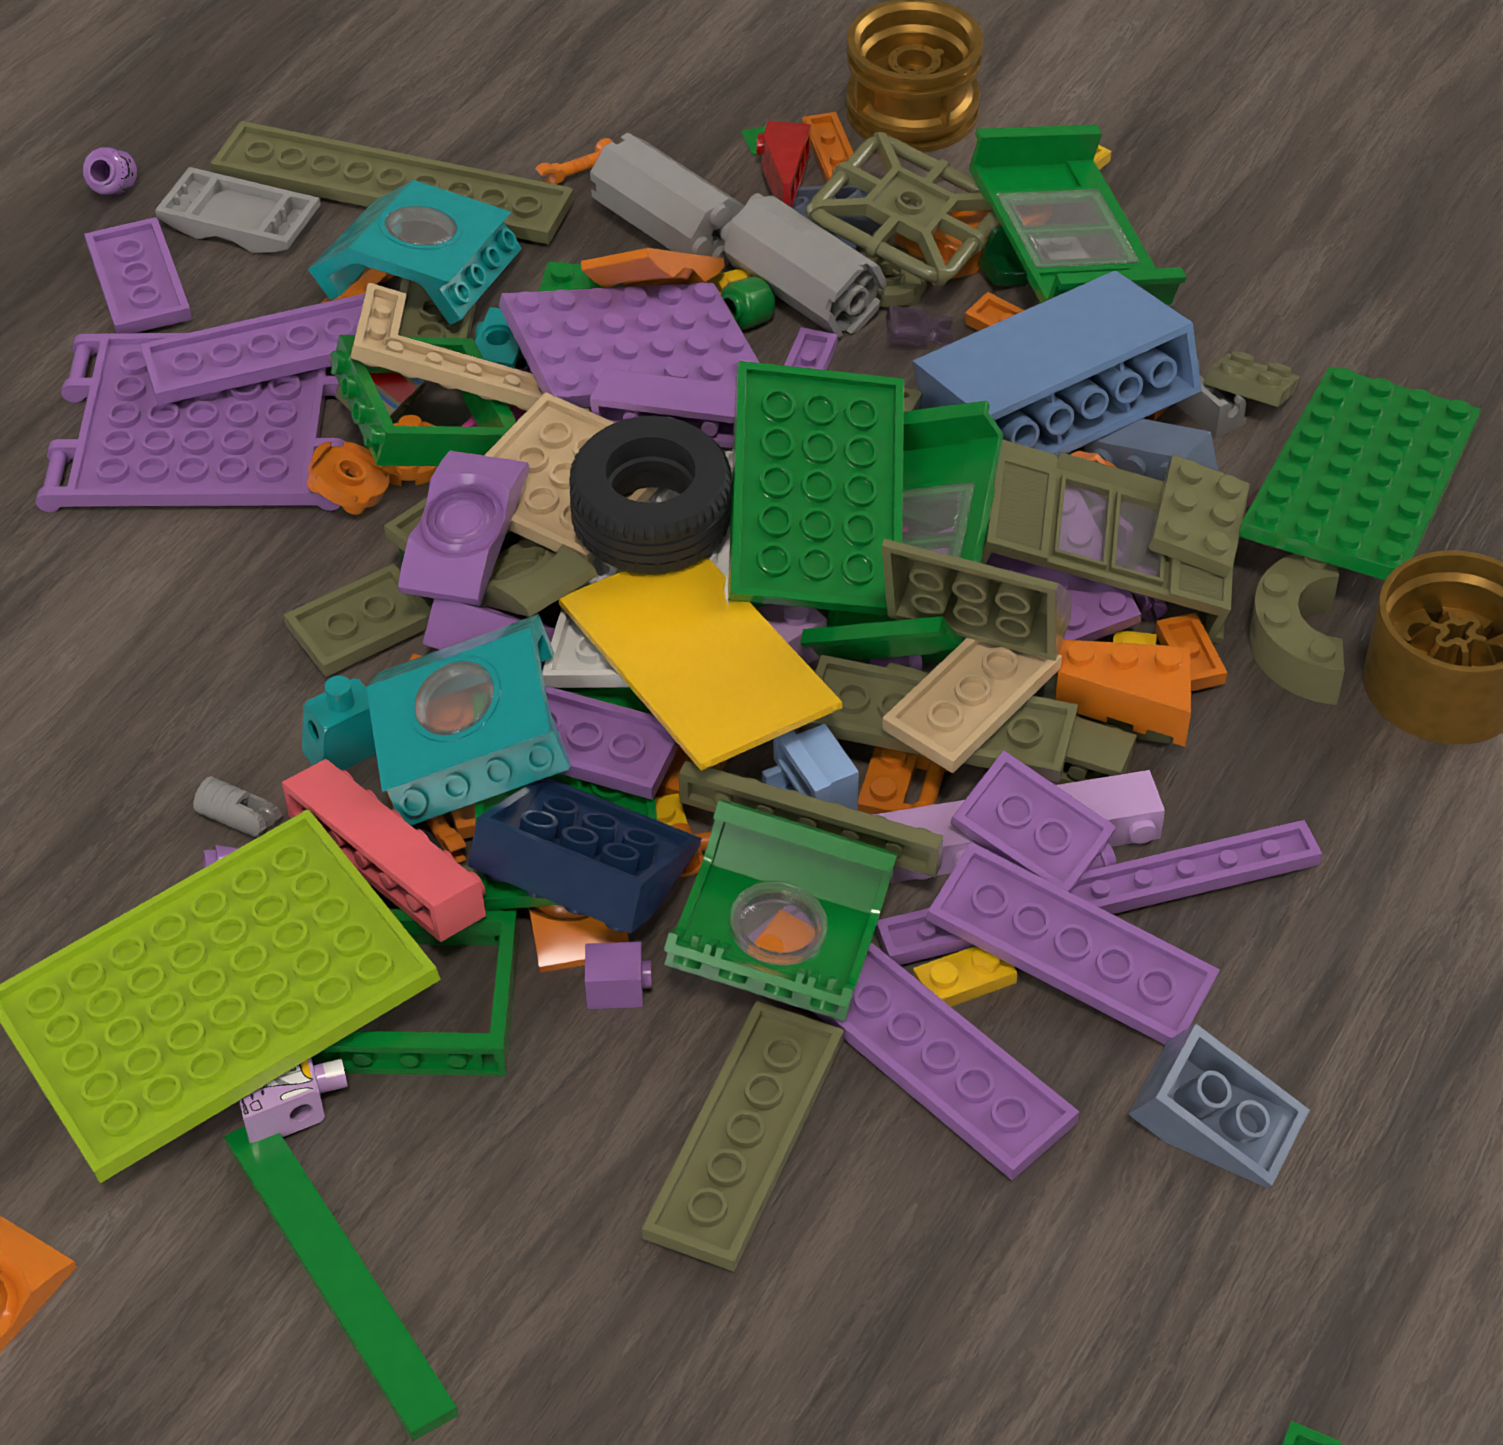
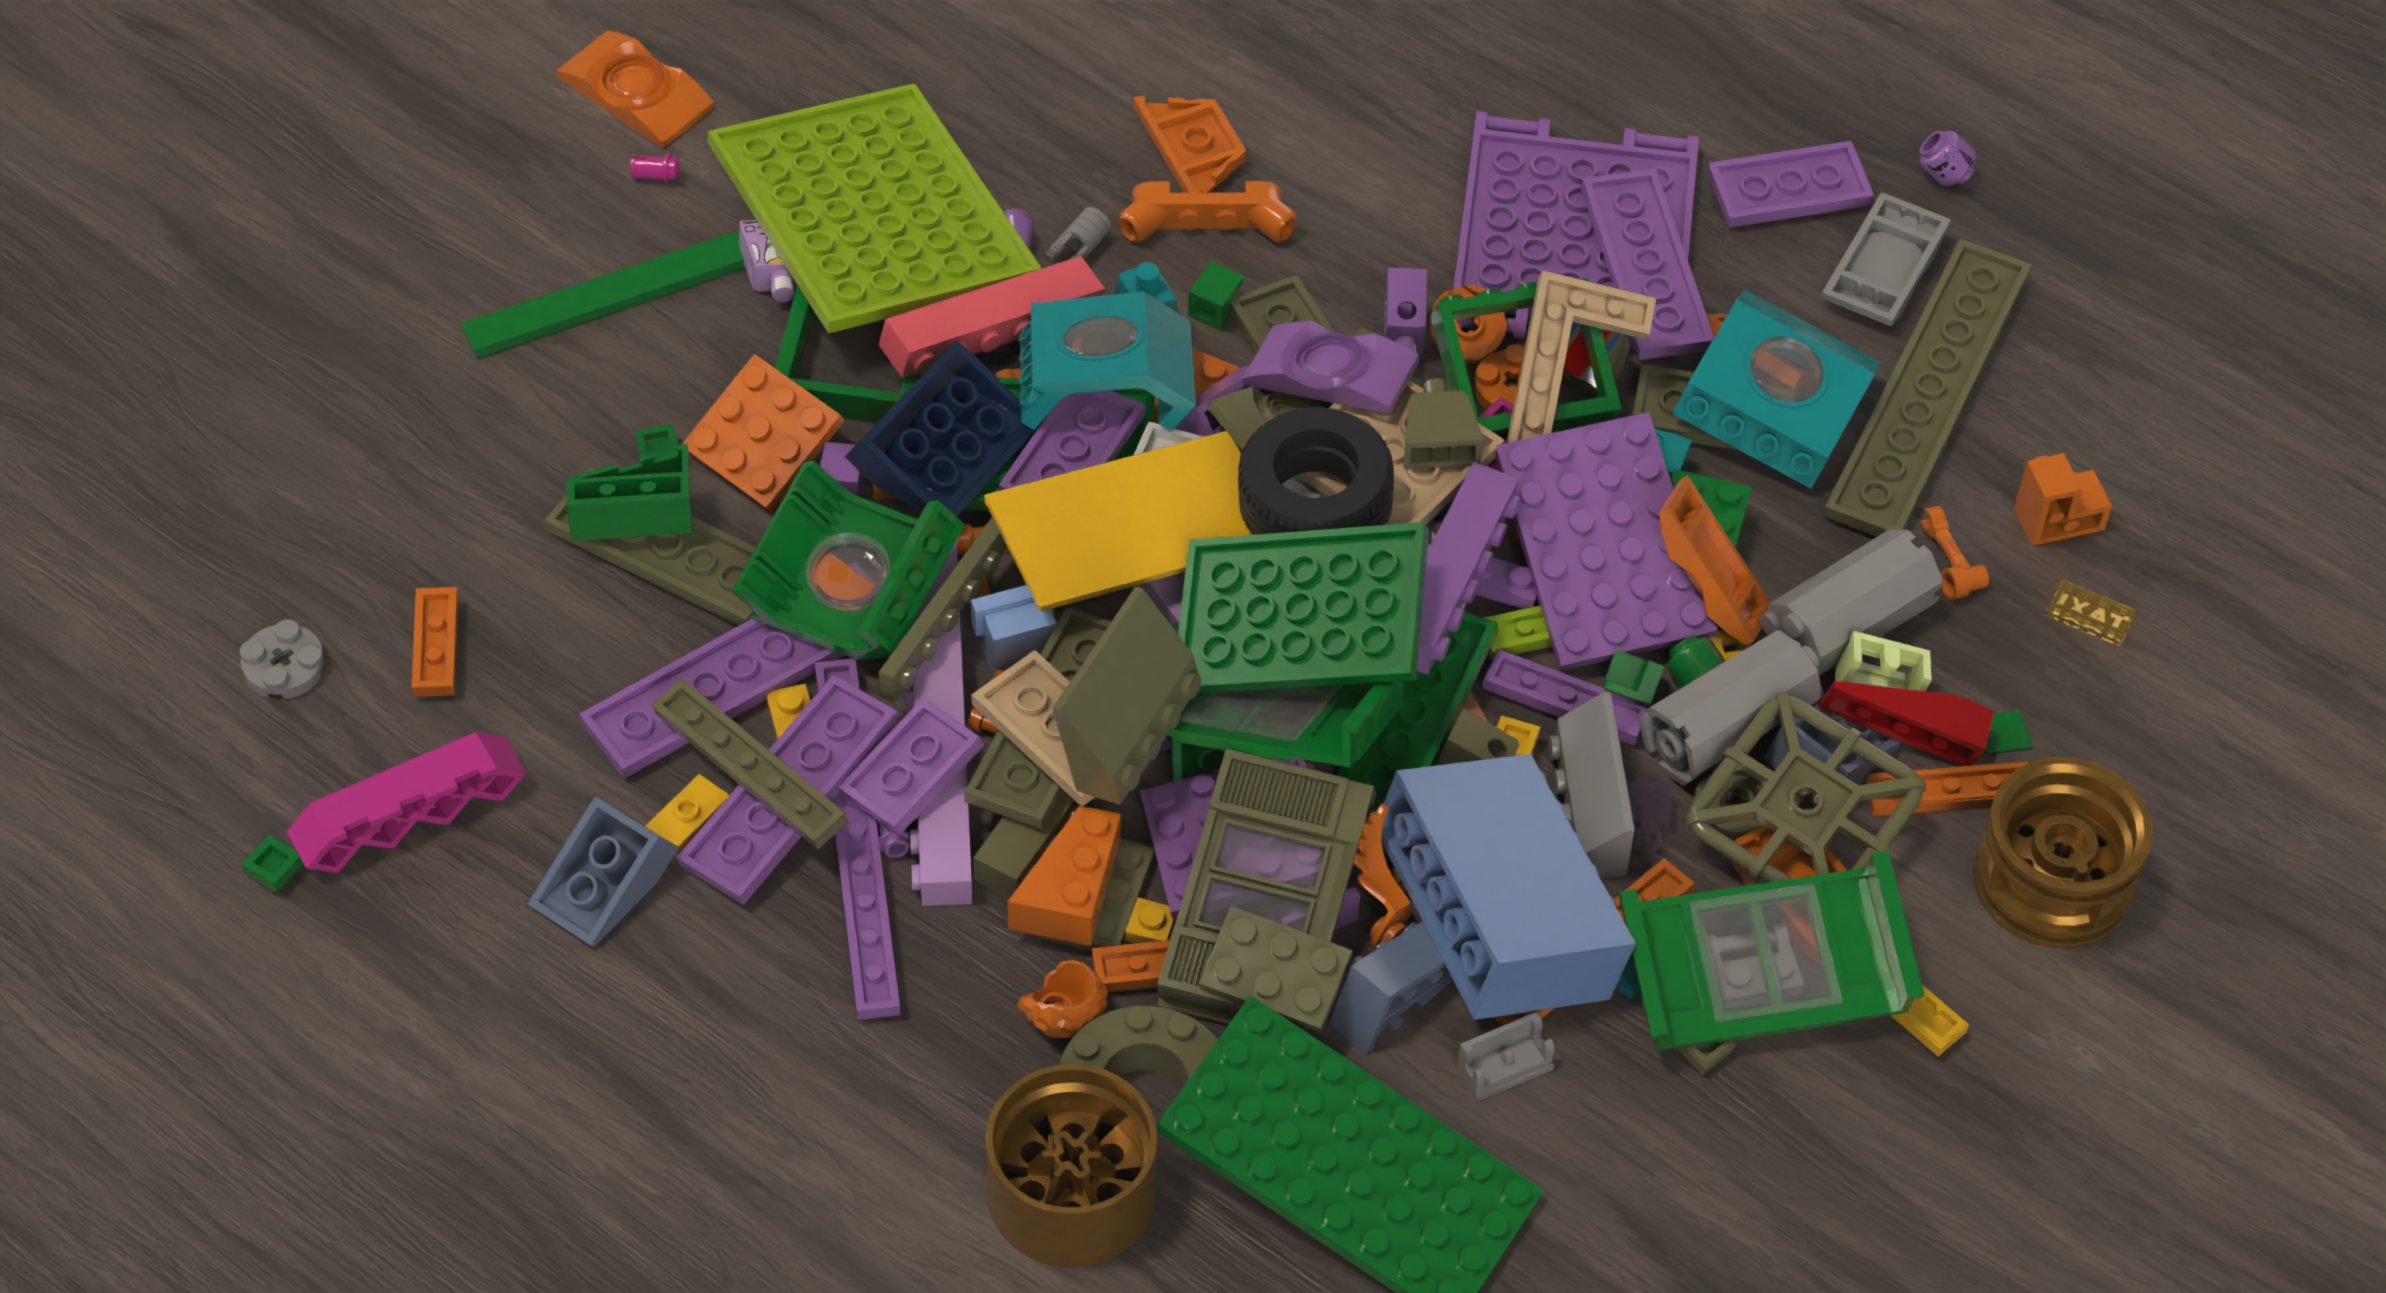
camera: 95 degrees right, 5 degrees up
(79, 726) = (1192, 140): none -> orange wing
(123, 1258) = (655, 167): none -> dark pink pin
(183, 739) = (1157, 208): none -> orange plate
(308, 672) = (1212, 295): none -> green panel
(342, 519) = (1406, 307): none -> medium lavender torso
(526, 95) = (2059, 502): none -> orange brick
(548, 422) = (1441, 429): none -> olive torso
(569, 1053) = (762, 432): none -> orange plate
(594, 1168) = (656, 440): none -> green plate
(630, 91) = (2090, 612): none -> clear yellow tile
(710, 1138) = (633, 499): none -> green wedge
(740, 172) = (1891, 655): none -> yellowish green window
(775, 334) = (1633, 677): none -> green panel
(891, 336) = (1594, 783): none -> light grey slope
(935, 1350) = (435, 642): none -> orange plate
(1062, 971) = (750, 763): none -> olive plate
(1109, 1051) = (688, 812): none -> yellow plate
(1206, 1334) = (391, 802): none -> dark pink brick
(1253, 380) = (1519, 1101): olive plate -> none
(1261, 687) = (1067, 1002): none -> orange hair

